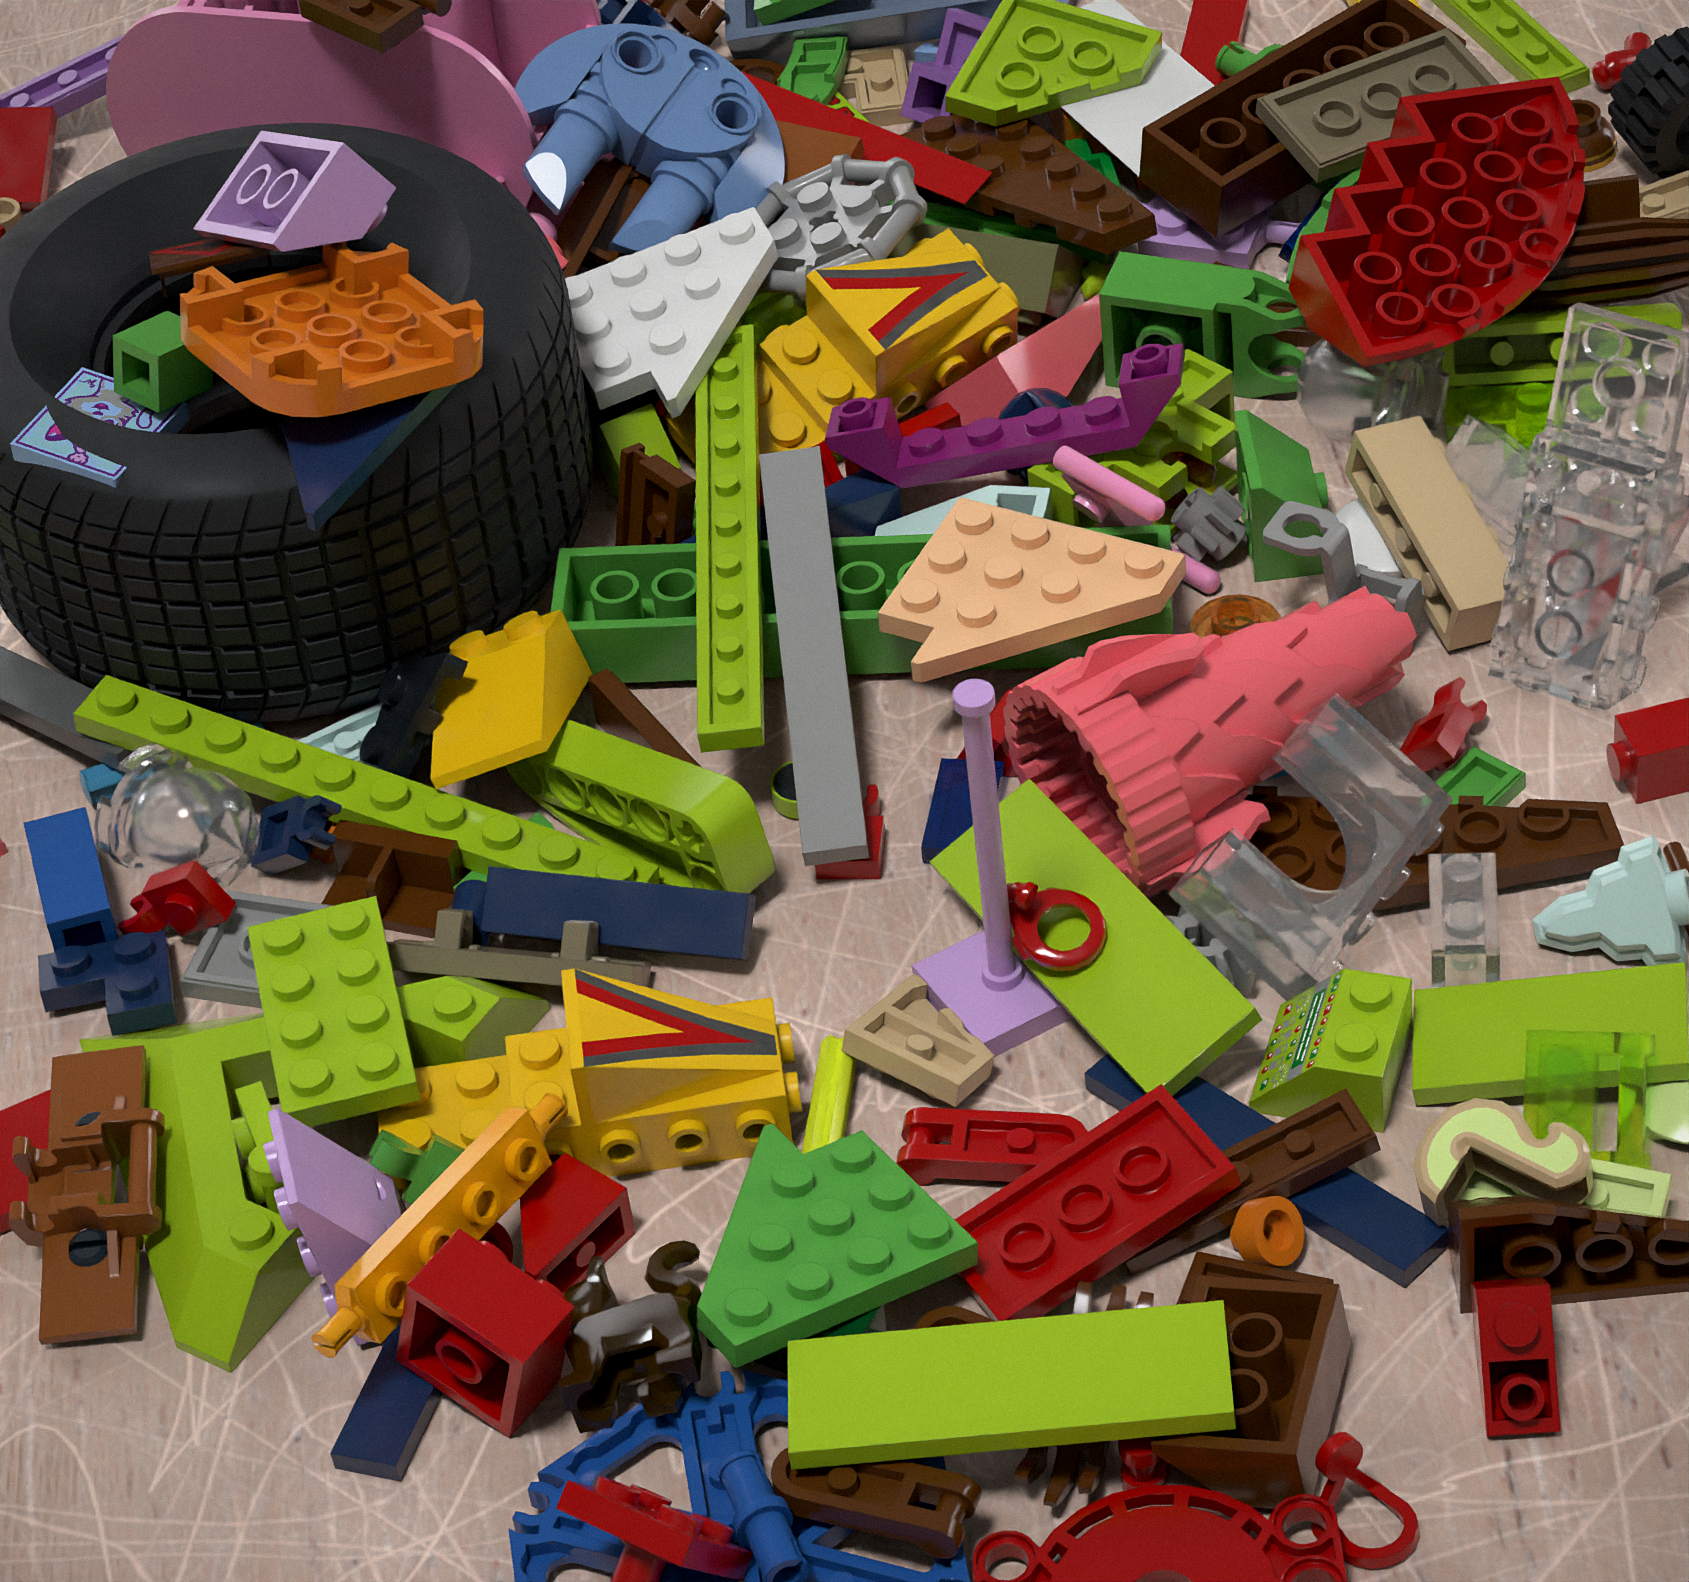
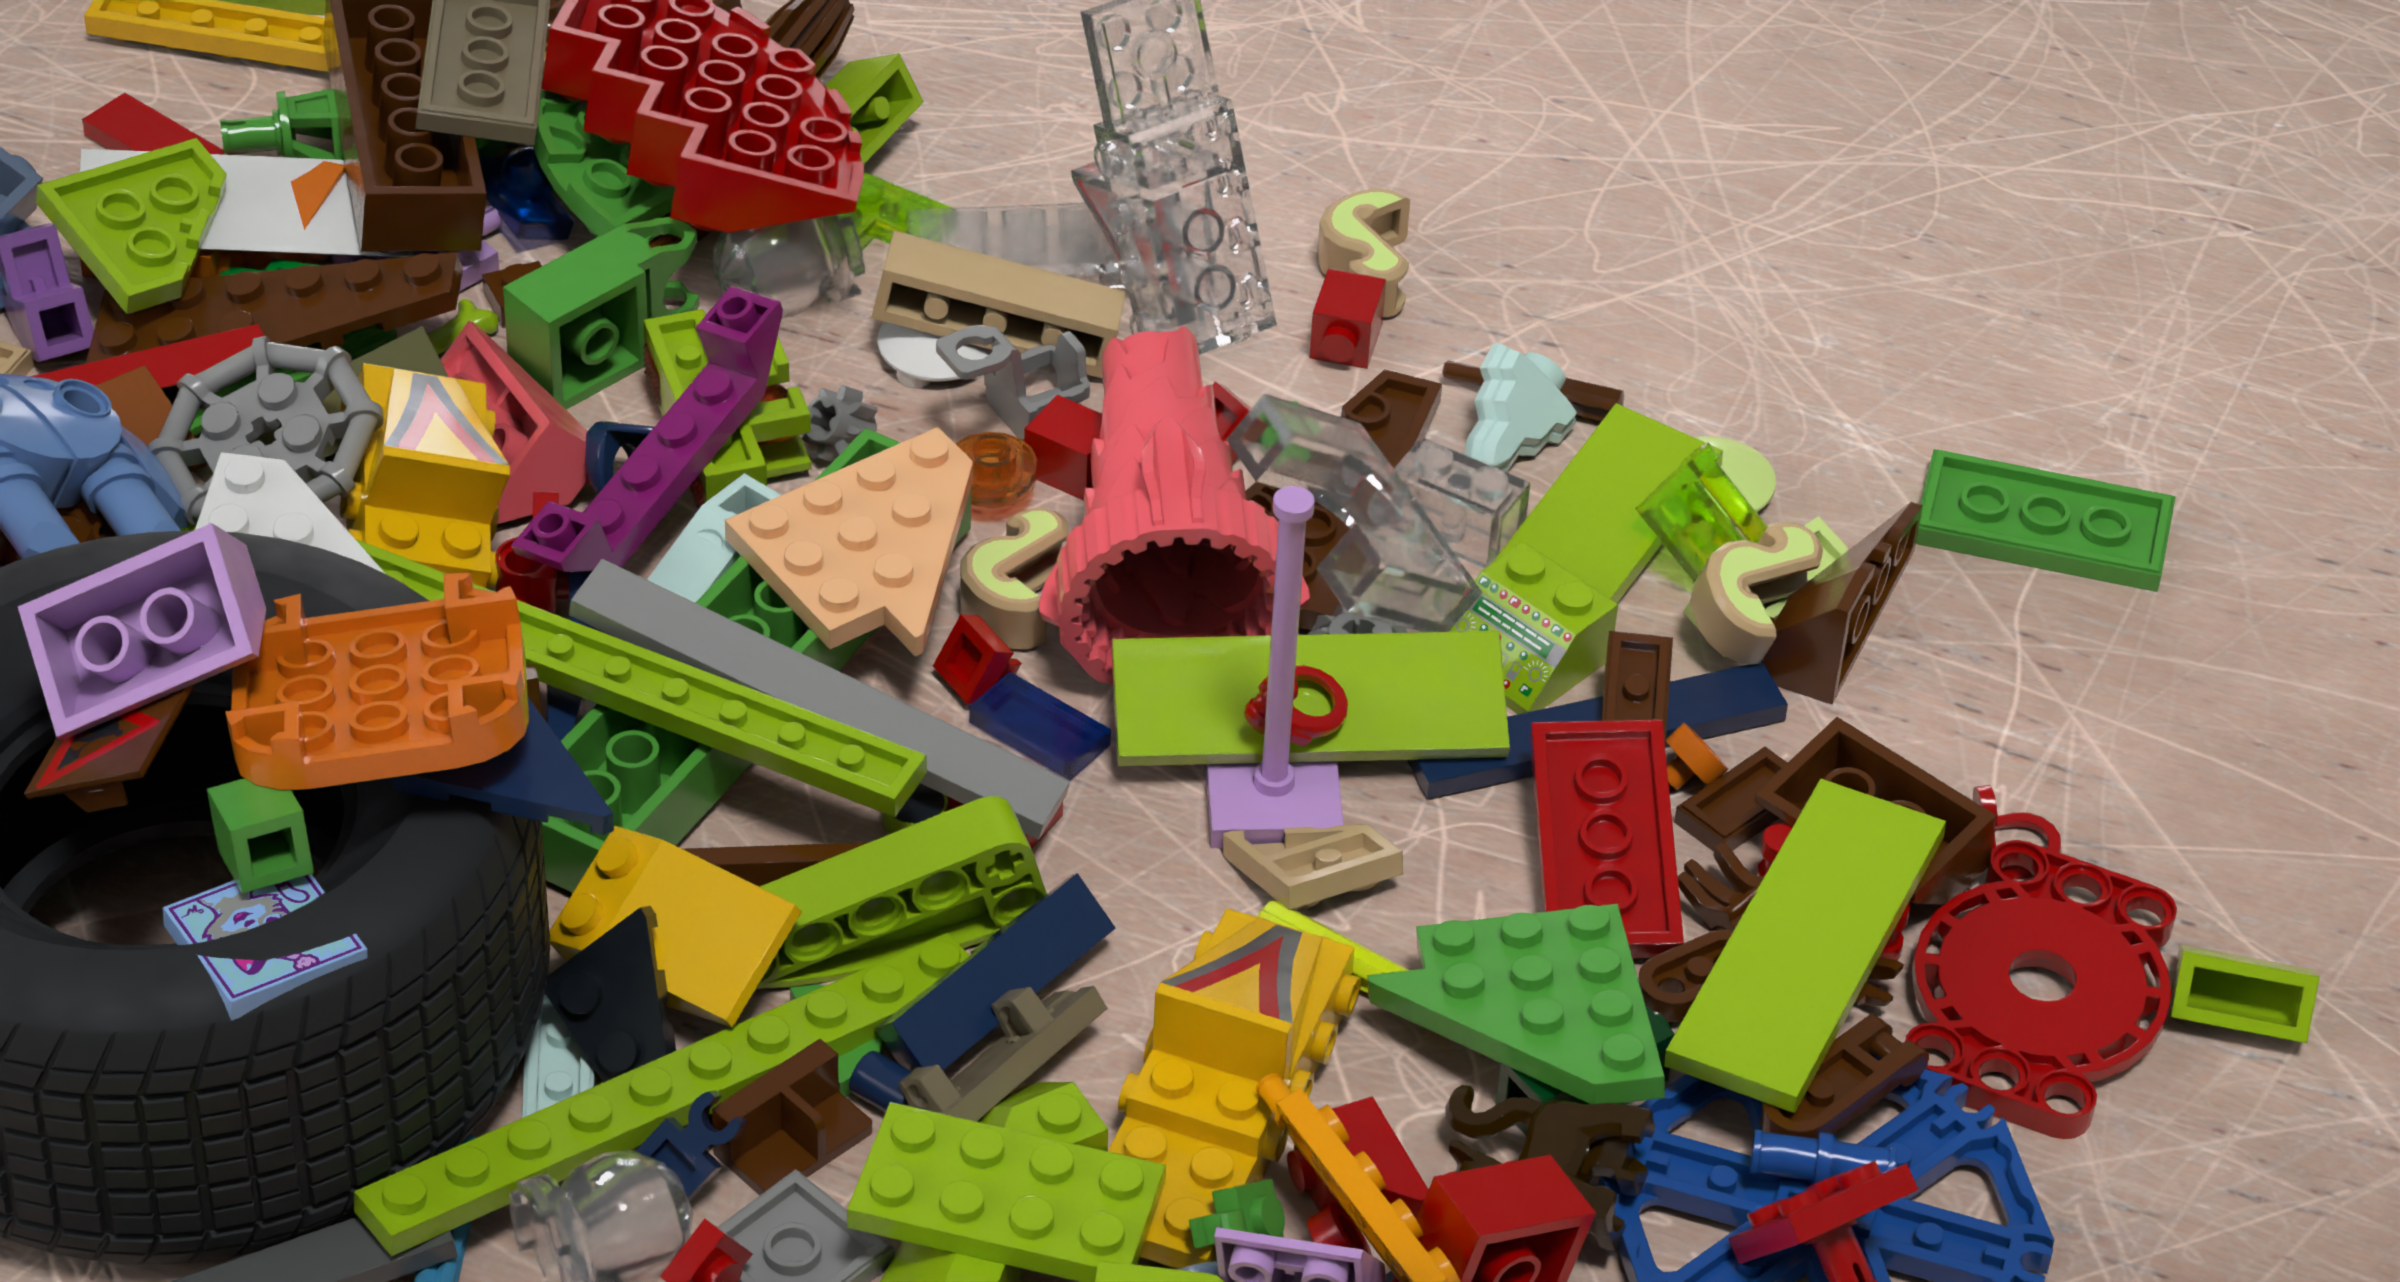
camera: 70 degrees left, 0 degrees up
(981, 1142) = (1467, 868): red plate -> none
(1119, 502) = (811, 436): bright pink plate -> none
(1268, 475) = (888, 372): bright green slope -> none
(1515, 1356) = (1919, 679): red slope -> none

